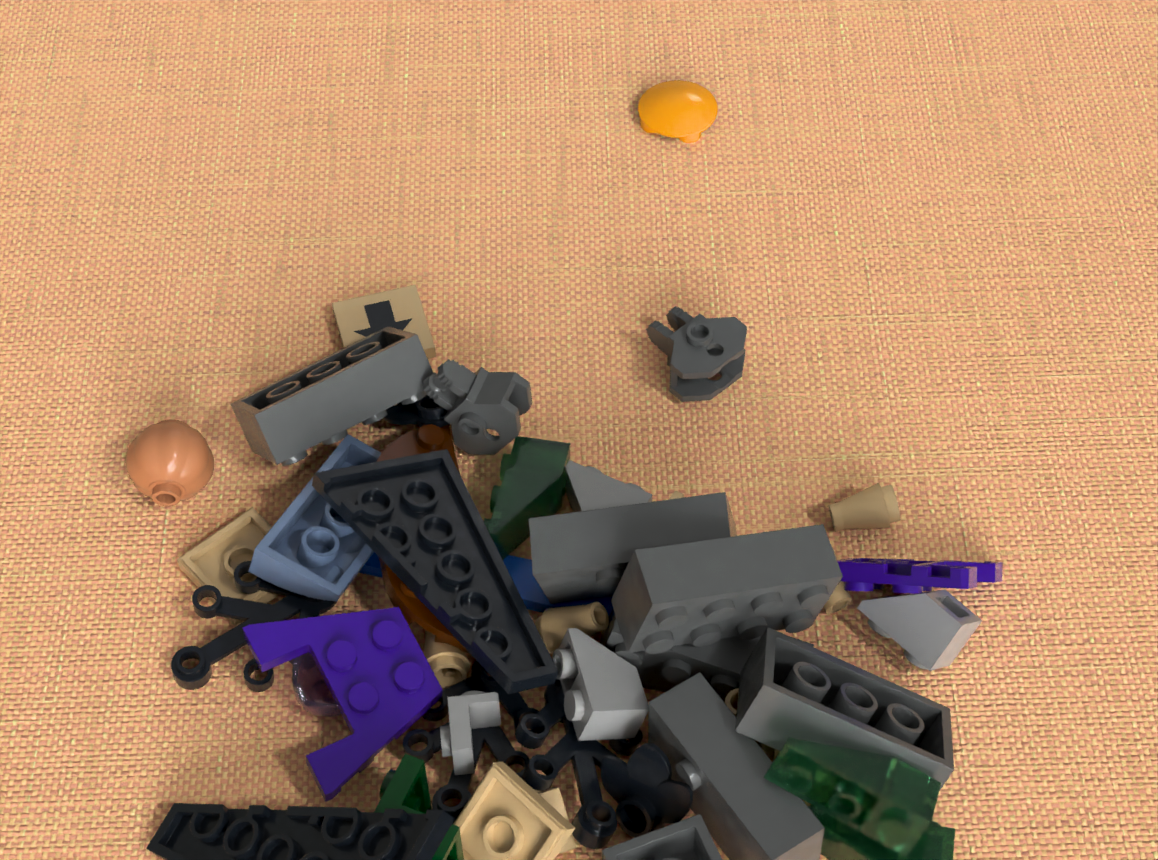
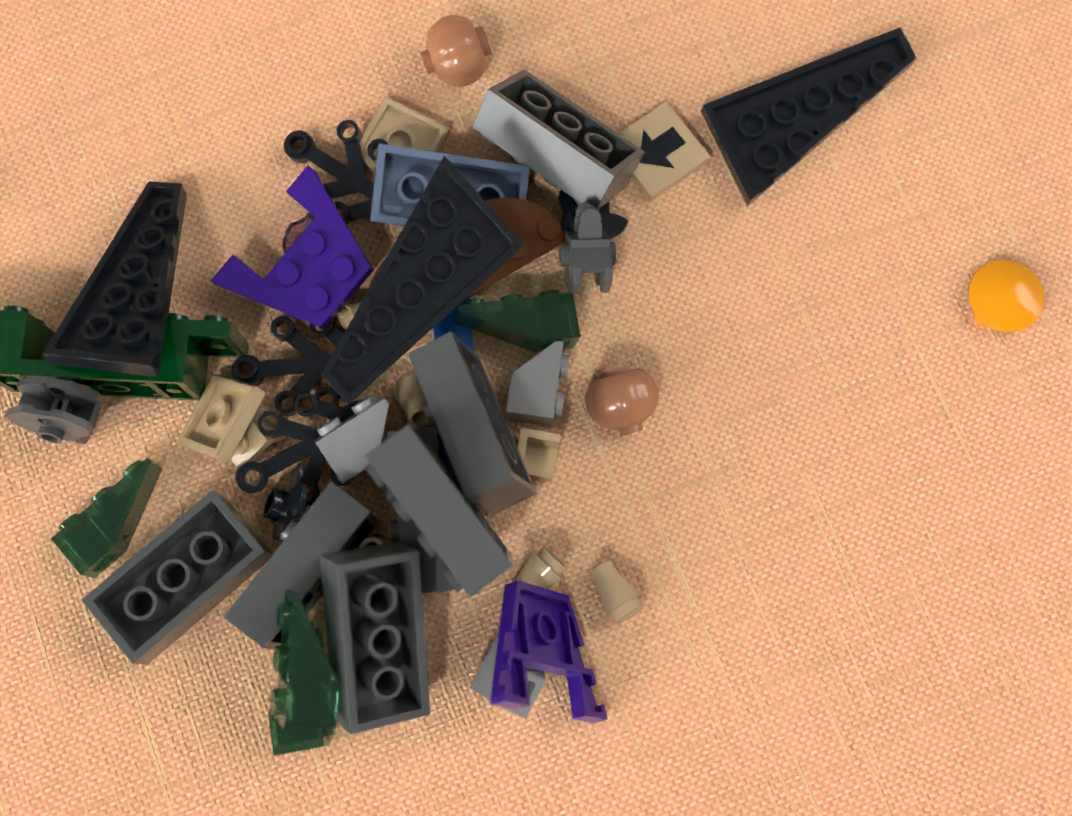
camera: 65 degrees right, 25 degrees up
(403, 207) = (786, 117): none -> black wing
(466, 713) = (290, 353): light grey bracket -> none
(651, 437) = (621, 398): none -> nougat plant
(699, 352) = (723, 405): dark grey hinge -> none

